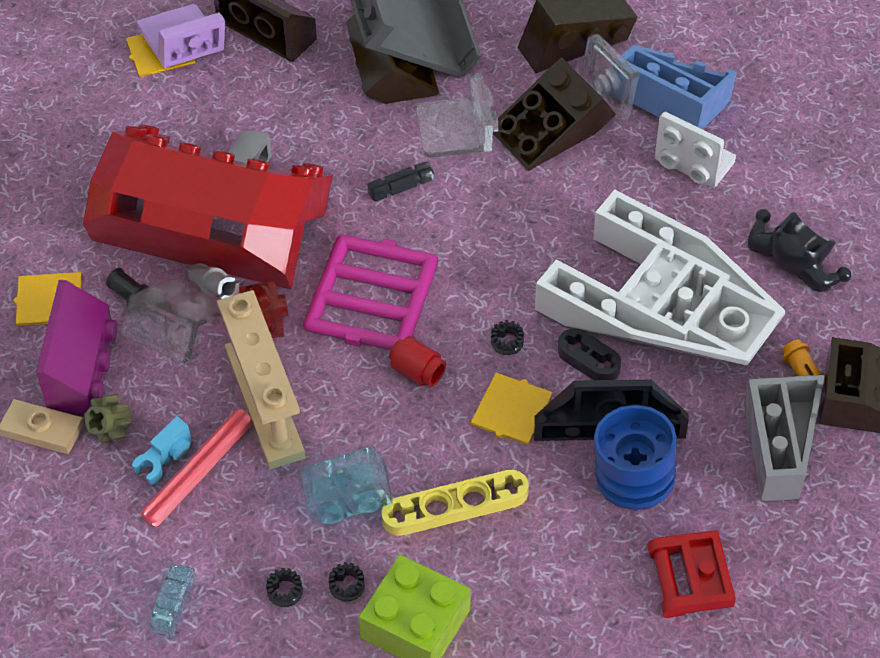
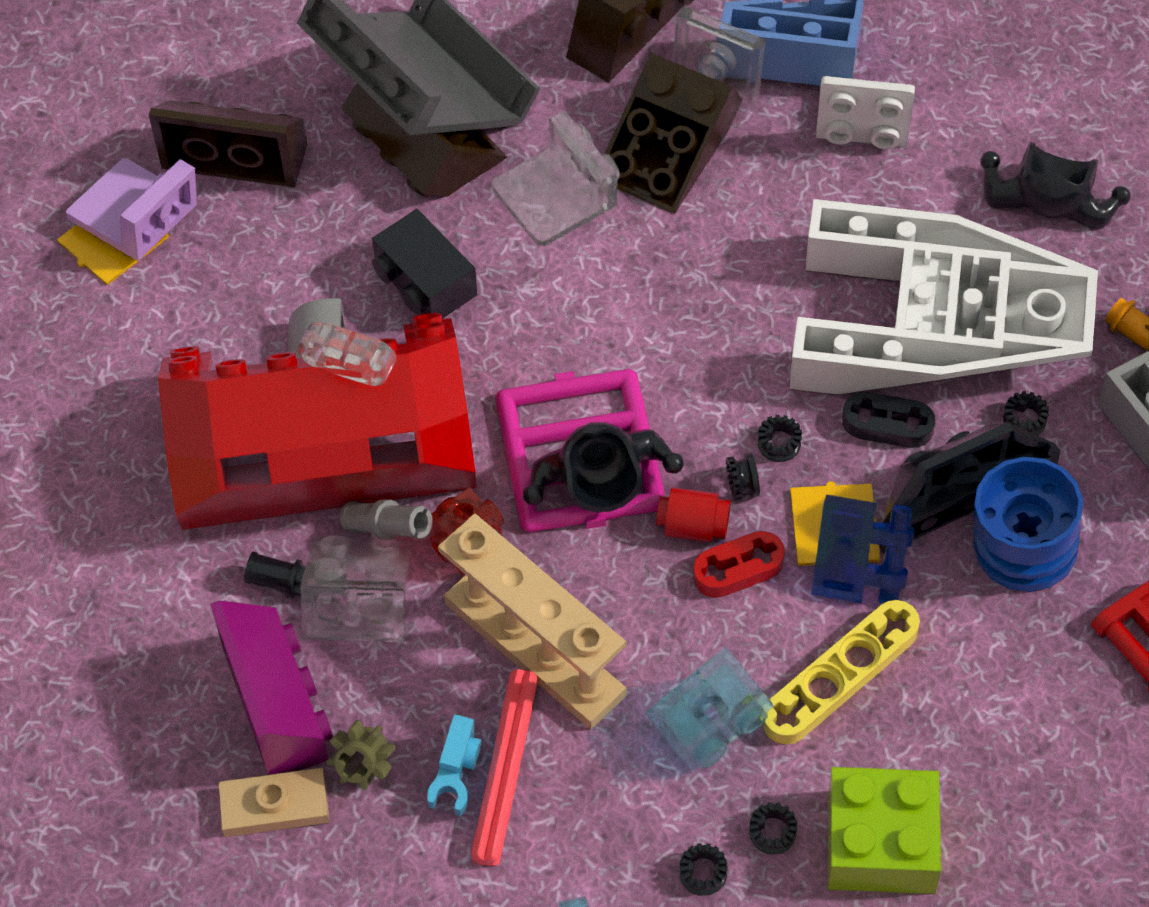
camera: 25 degrees left, 5 degrees up
(37, 295) = (172, 630): yellow piece -> none
(225, 156) = (347, 353): none -> clear beam
(336, 137) = (423, 266): none -> black brick
(370, 302) = (600, 466): none -> black piece
(400, 181) = (529, 291): black axle -> none
(429, 405) = (736, 559): none -> red beam
(466, 351) = (744, 476): none -> black bush
(499, 422) = (845, 548): none -> clear blue plate
(689, 382) = (1020, 403): none -> black bush

